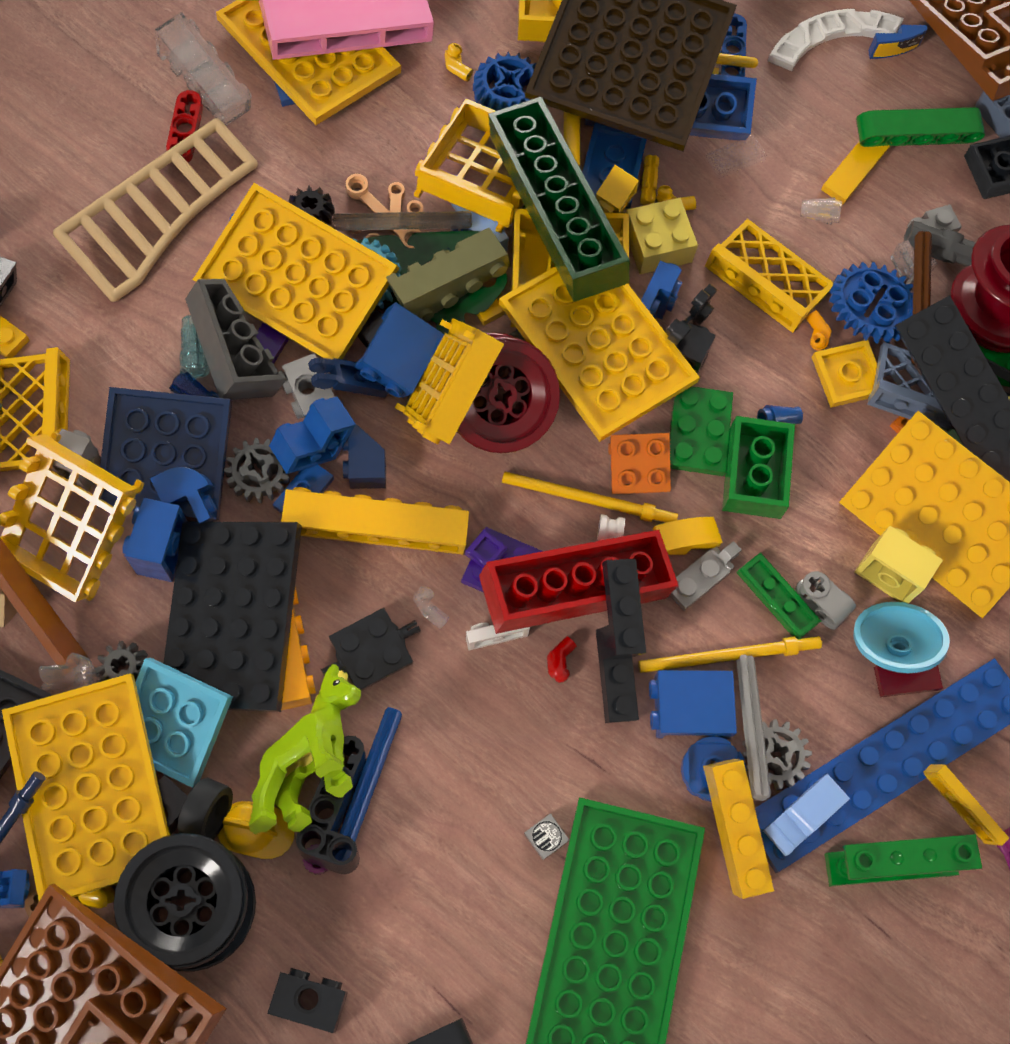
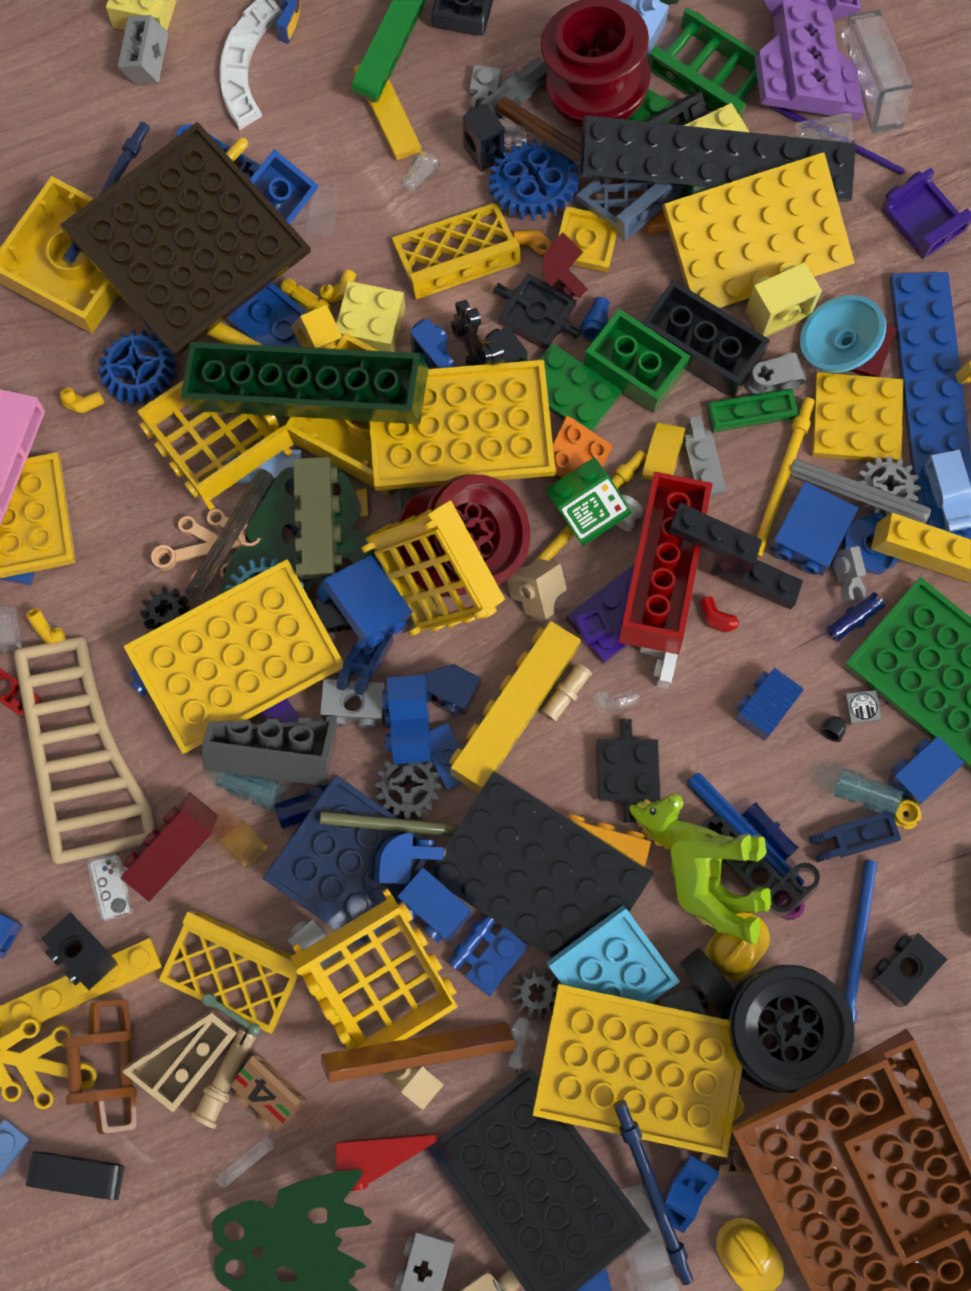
camera: 55 degrees left, 5 degrees up
(57, 286) = (108, 888): none -> clear tile
(109, 307) = (169, 847): none -> dark red wedge
(139, 621) = (495, 961): none -> blue plate
(140, 365) = (244, 844): none -> clear yellow brick
(209, 462) = (389, 824): none -> olive bar
(239, 964) = (859, 935): none -> blue bar
(248, 130) = (42, 627): none -> yellow arm
(379, 806) = (770, 831): none -> clear blue pin
(414, 561) = (566, 692): none -> tan pin
(417, 892) = (858, 836): none -> dark blue hinge
(462, 884) = (873, 793): none -> clear light blue axle
(472, 928) = (913, 811): none -> yellow plate
(496, 486) = (538, 587): none -> tan brick
(501, 744) = (769, 703): none -> blue brick
(510, 818) = (833, 728): none -> black hinge
(514, 925) = (926, 770): none -> blue brick
(598, 488) = (588, 501): none -> slope
(631, 786) = (855, 617): none -> clear blue pin
(672, 757) = (848, 568): none -> light grey plate
(754, 365) = (537, 311): none -> black plate
(808, 355) = (556, 265): none -> dark red brick
(818, 516) = (718, 344): none -> black brick
(831, 695) = (857, 417): none -> yellow plate
(885, 238) = (483, 136): none -> black brick

